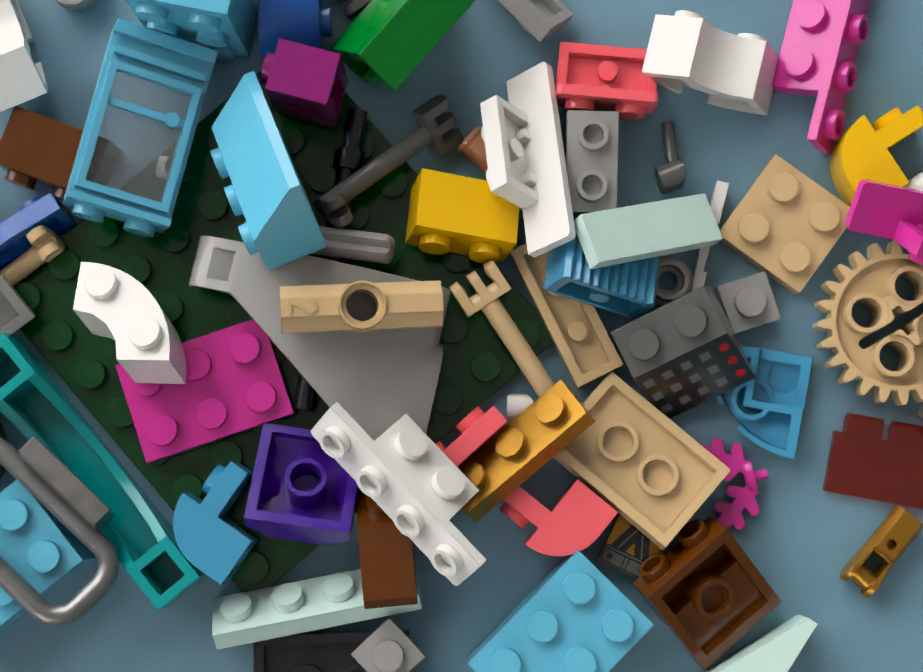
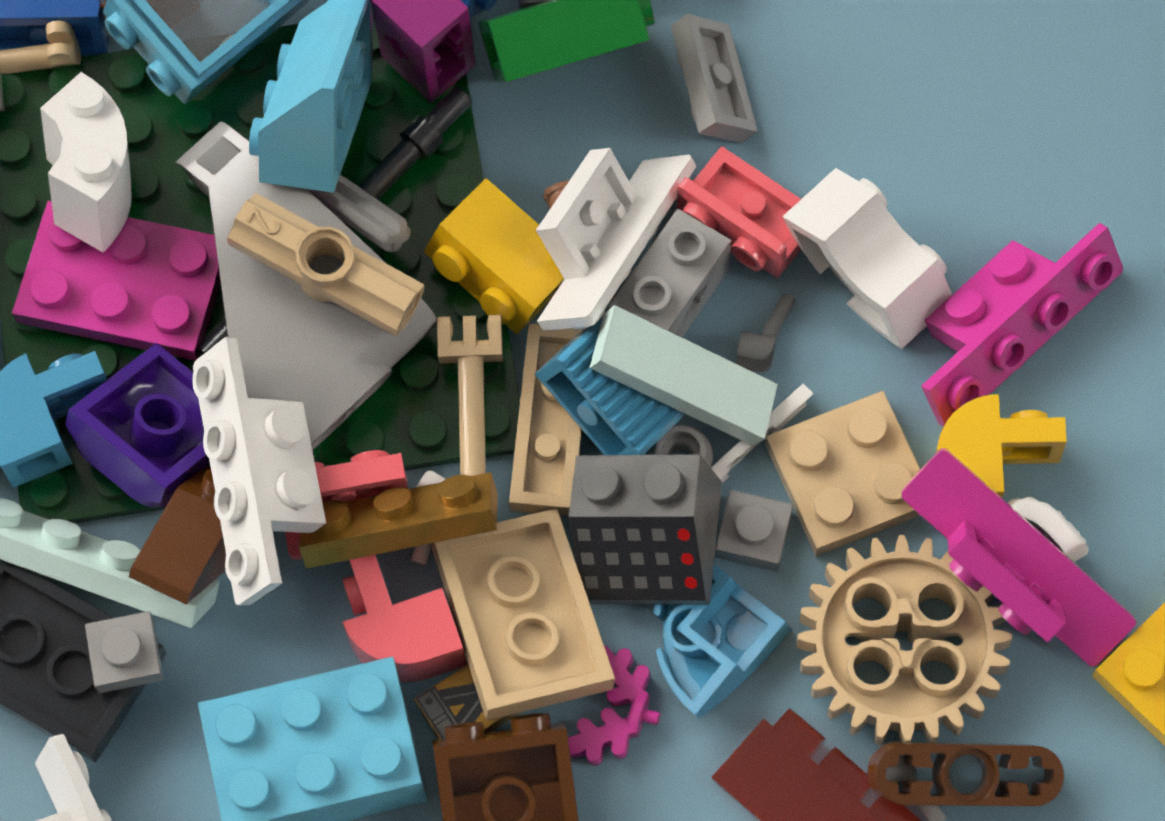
camera: 35 degrees right, 15 degrees down
(433, 132) = (373, 161): dark grey hinge -> none

